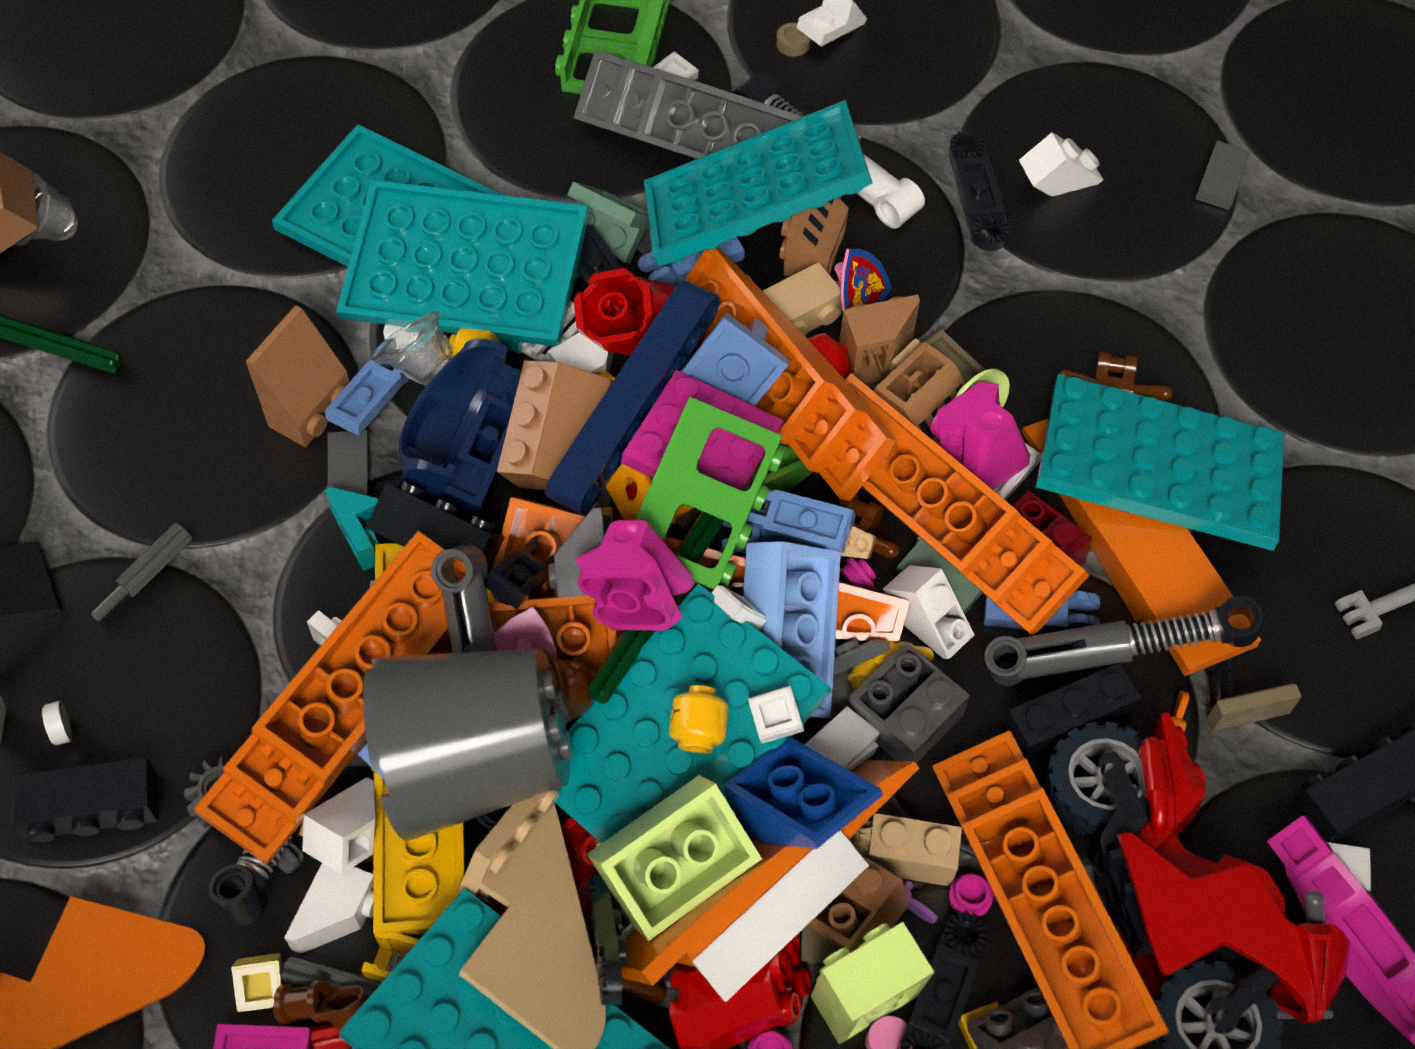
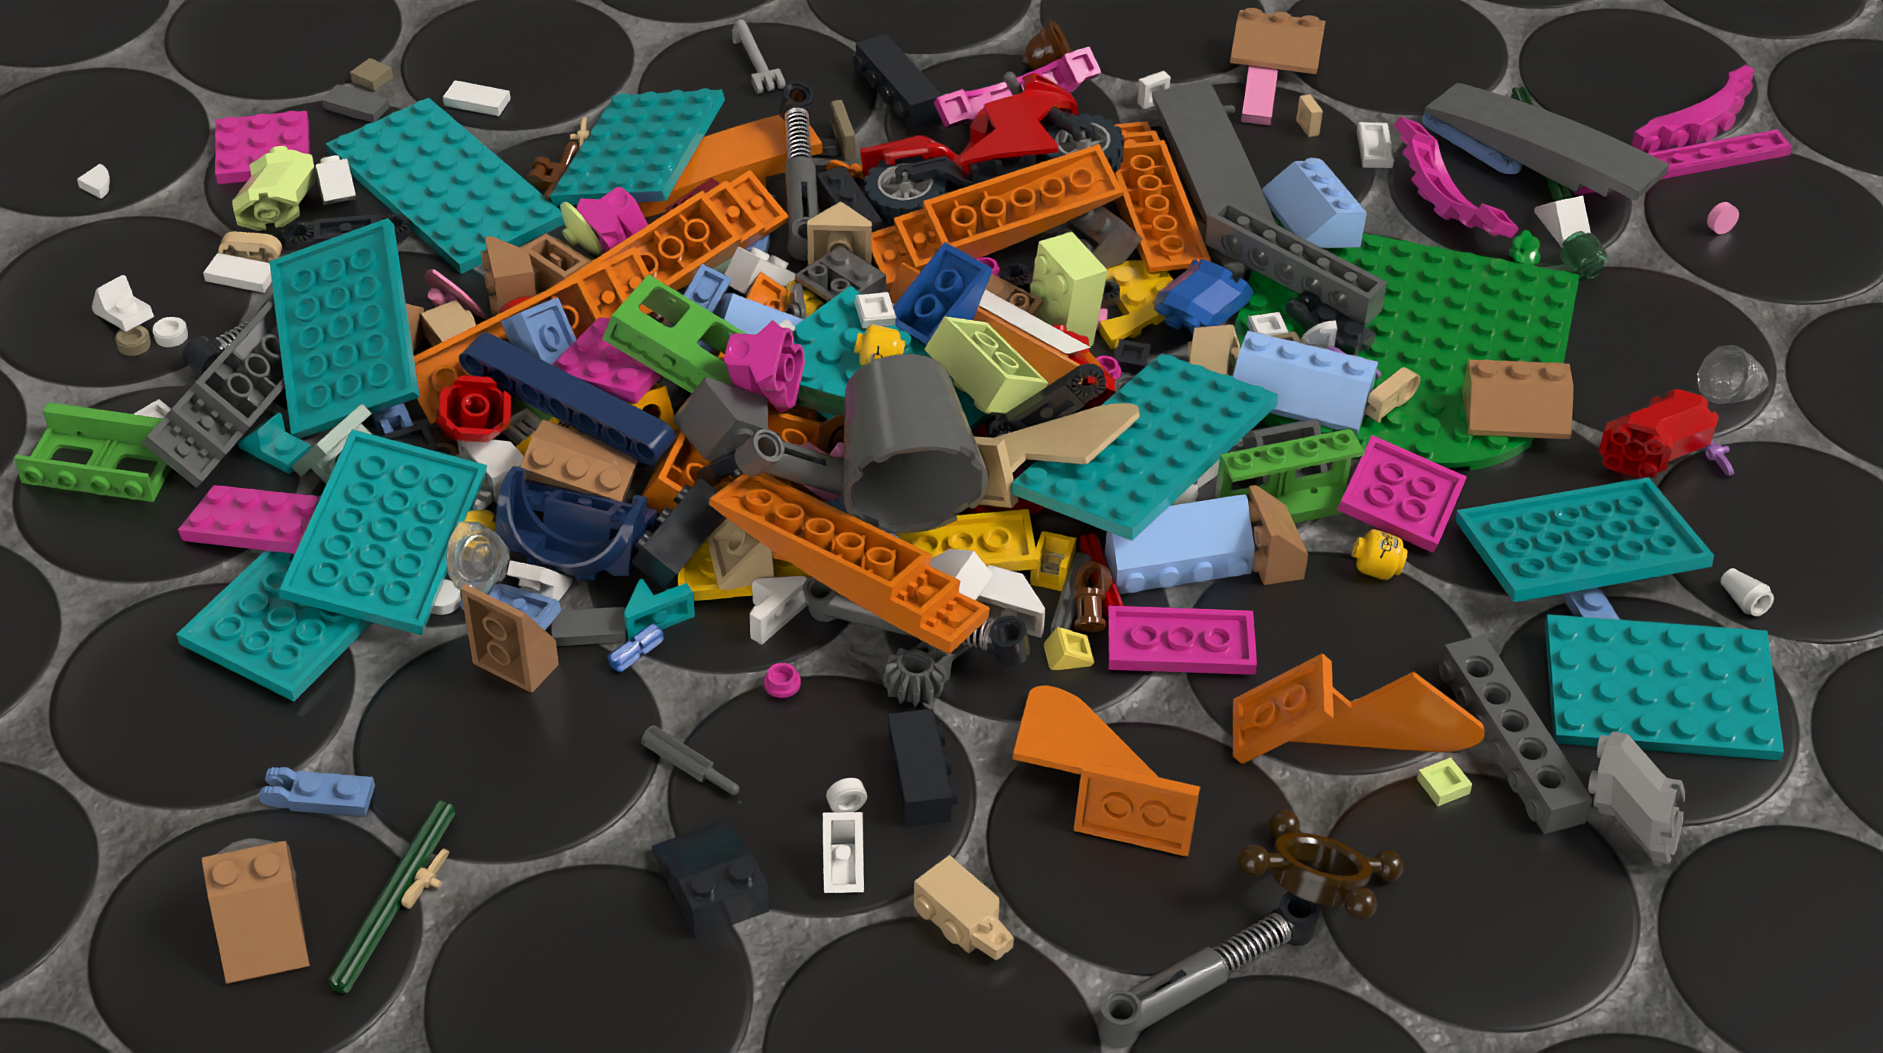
camera: 90 degrees left, 15 degrees down
(33, 355) = (423, 879): none -> tan piece
(154, 263) = (317, 792): none -> medium blue hinge
(243, 657) = (782, 680): none -> dark pink plate
(305, 509) = (641, 643): none -> piece
(394, 400) = (540, 580): none -> white slope
(514, 156) = (250, 519): none -> dark pink plate
(634, 166) = (274, 445): none -> teal slope
(807, 66) = (170, 332): none -> white tile
(905, 110) = (238, 272): none -> white tile
(938, 109) = (251, 246): none -> tan beam
(992, 690) = (838, 228): none -> tan slope
(1024, 108) = (274, 189): none -> yellowish green brick
(1084, 276) = (445, 183): none -> teal plate
(1127, 102) = (248, 138): none -> dark pink plate
(1200, 404) = (582, 134): none -> tan piece
(1256, 291) = (476, 98): none -> white tile
(1283, 184) = (371, 74): none -> dark tan tile

